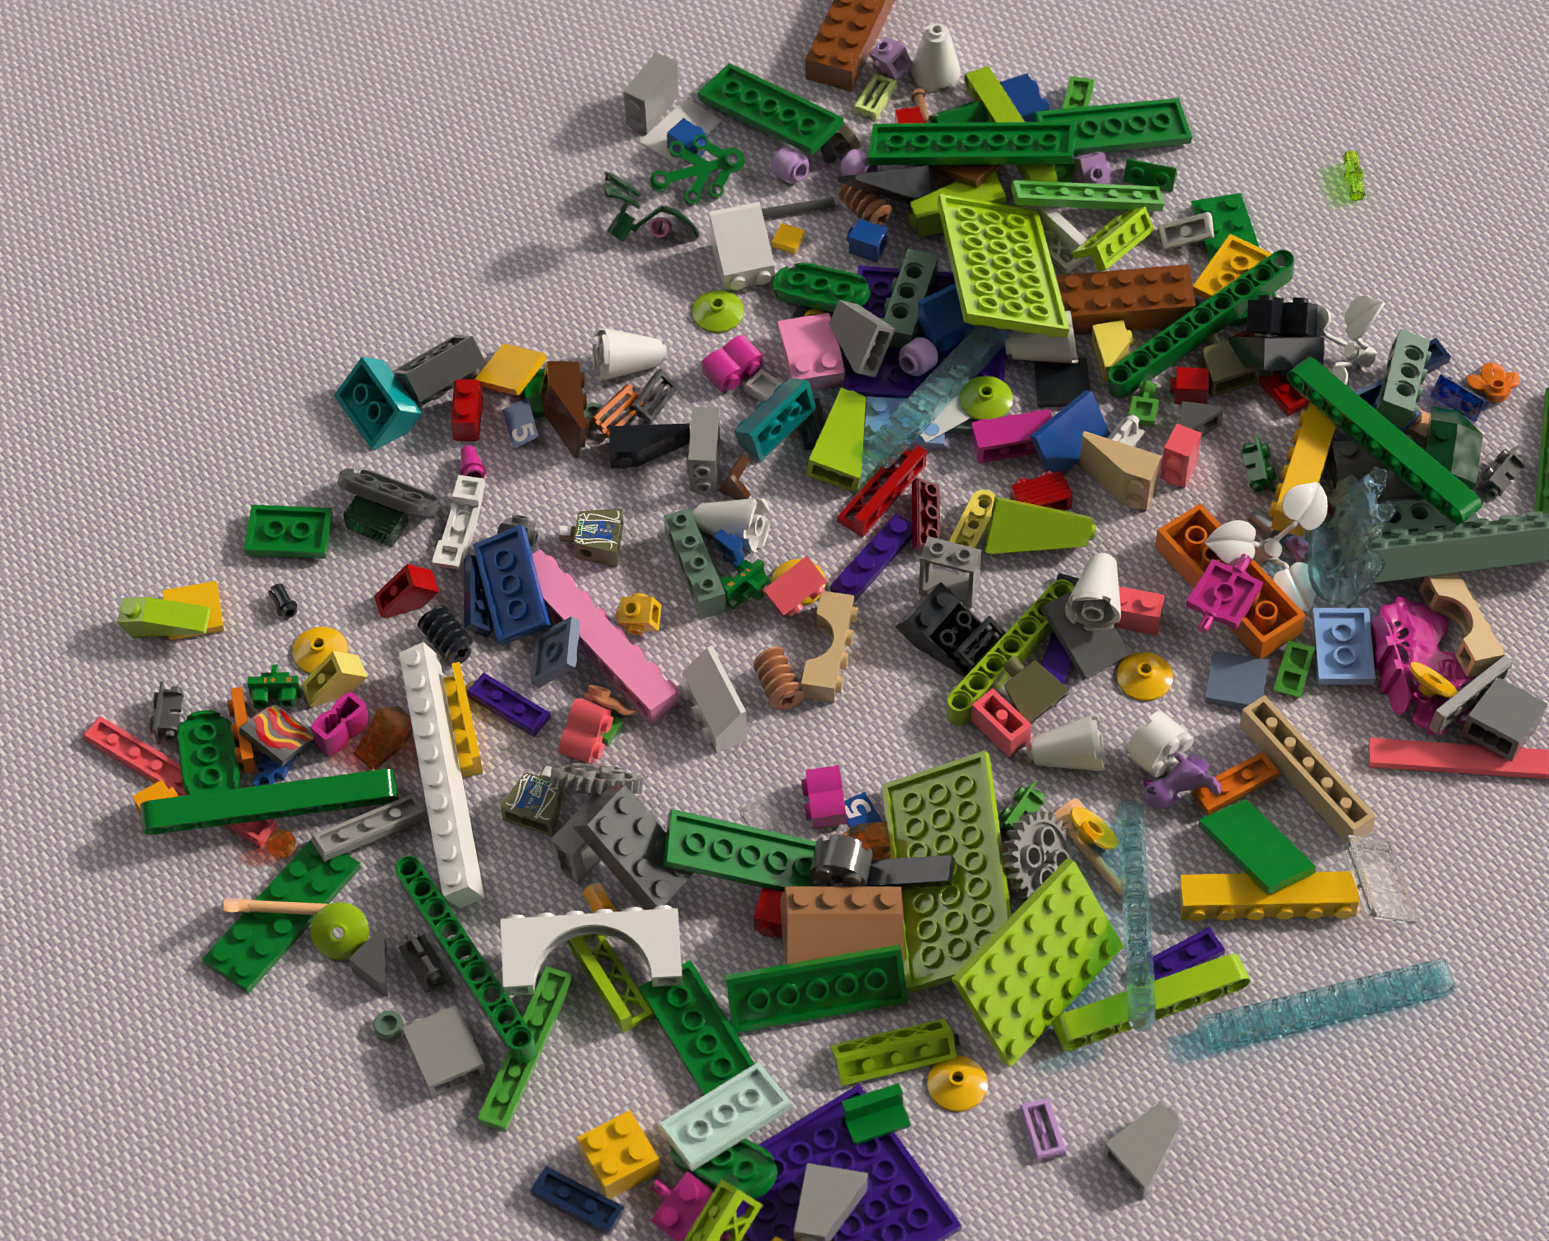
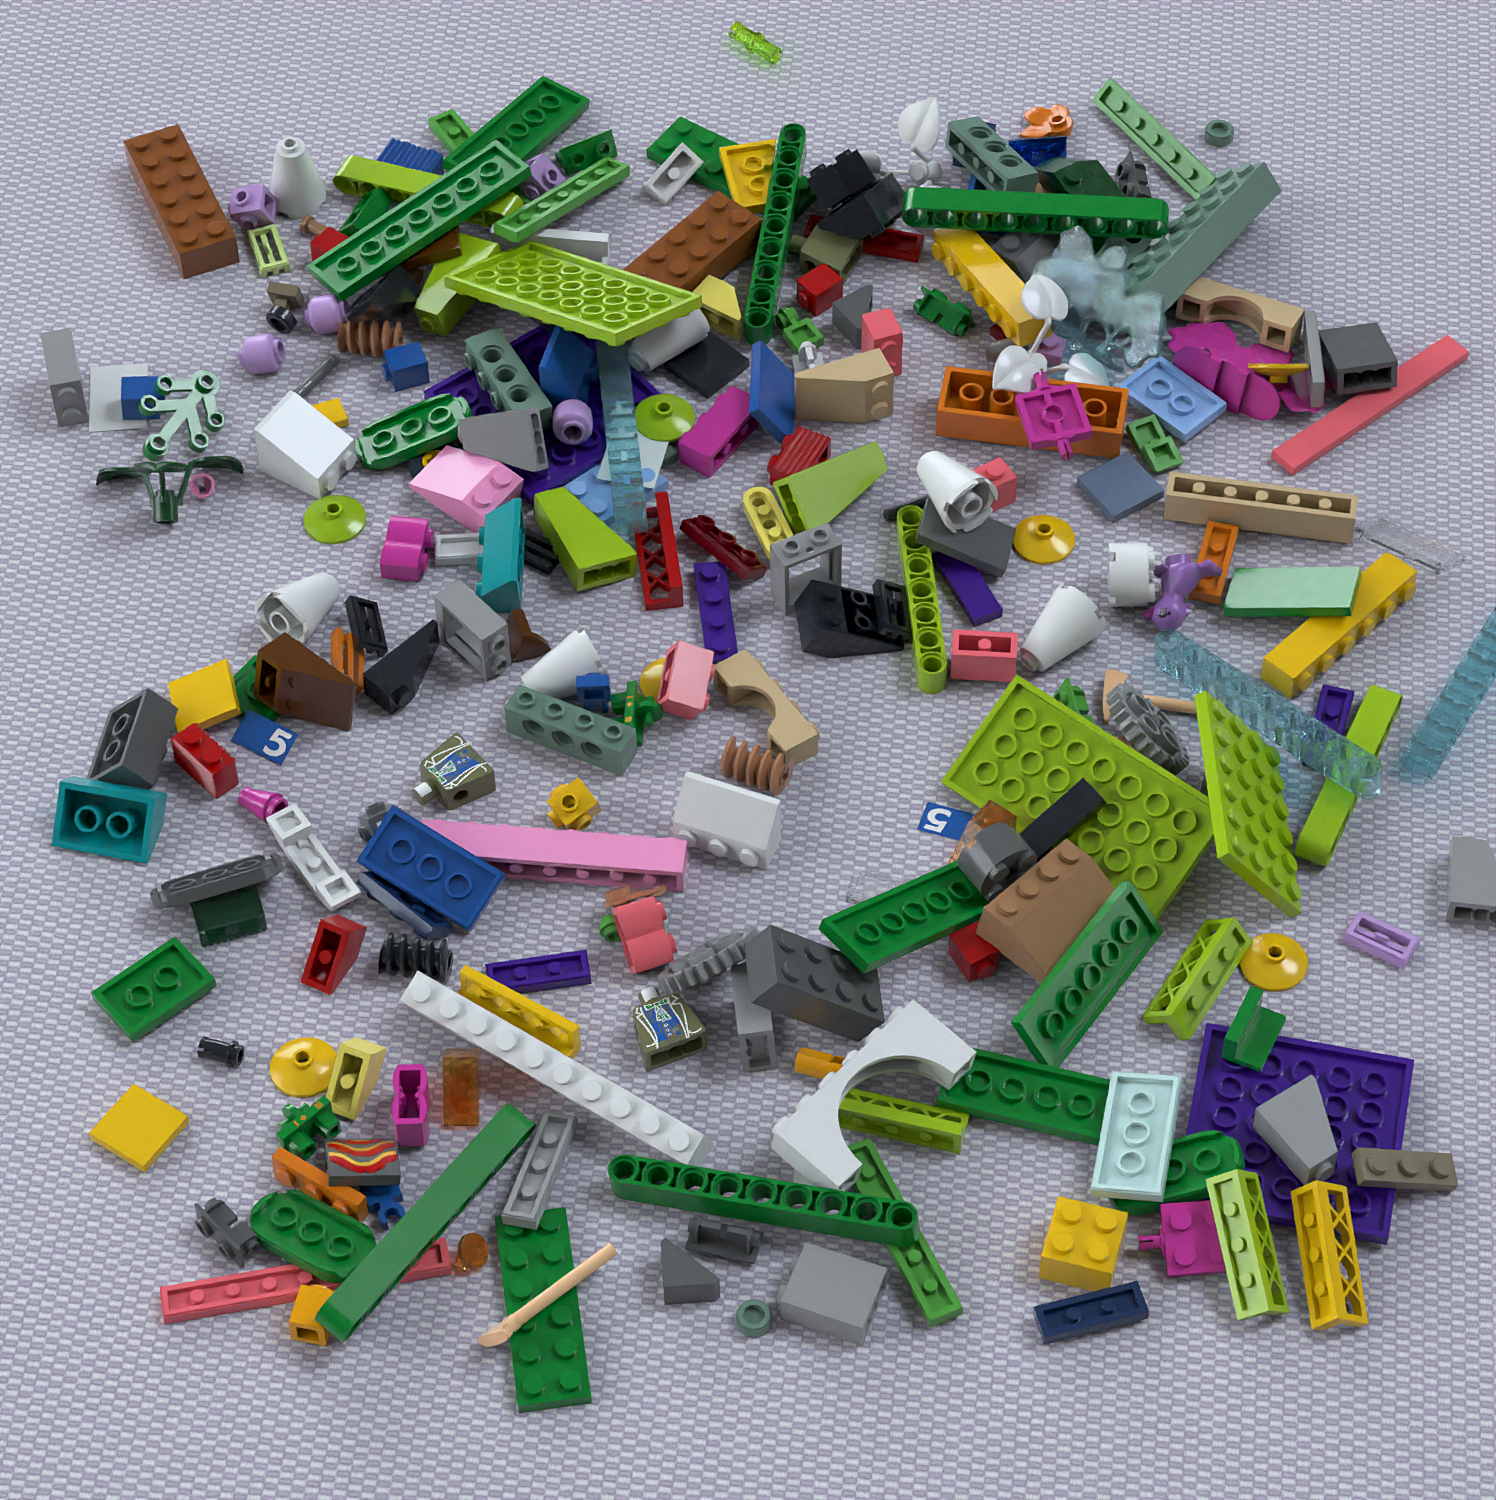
camera: 45 degrees left, 5 degrees down
(161, 617) = (126, 1150): lime slope -> none
(343, 916) = (605, 1278): lime dish -> none
(555, 651) = (537, 892): sand blue plate -> none
(770, 108) = (191, 318): green plate -> none
(825, 795) = (907, 826): dark pink brick -> none
(1032, 689) = (979, 605): olive torso -> none
(1093, 829) = (1152, 682): yellow dish -> none
(1116, 238) = (625, 215): lime fence -> none

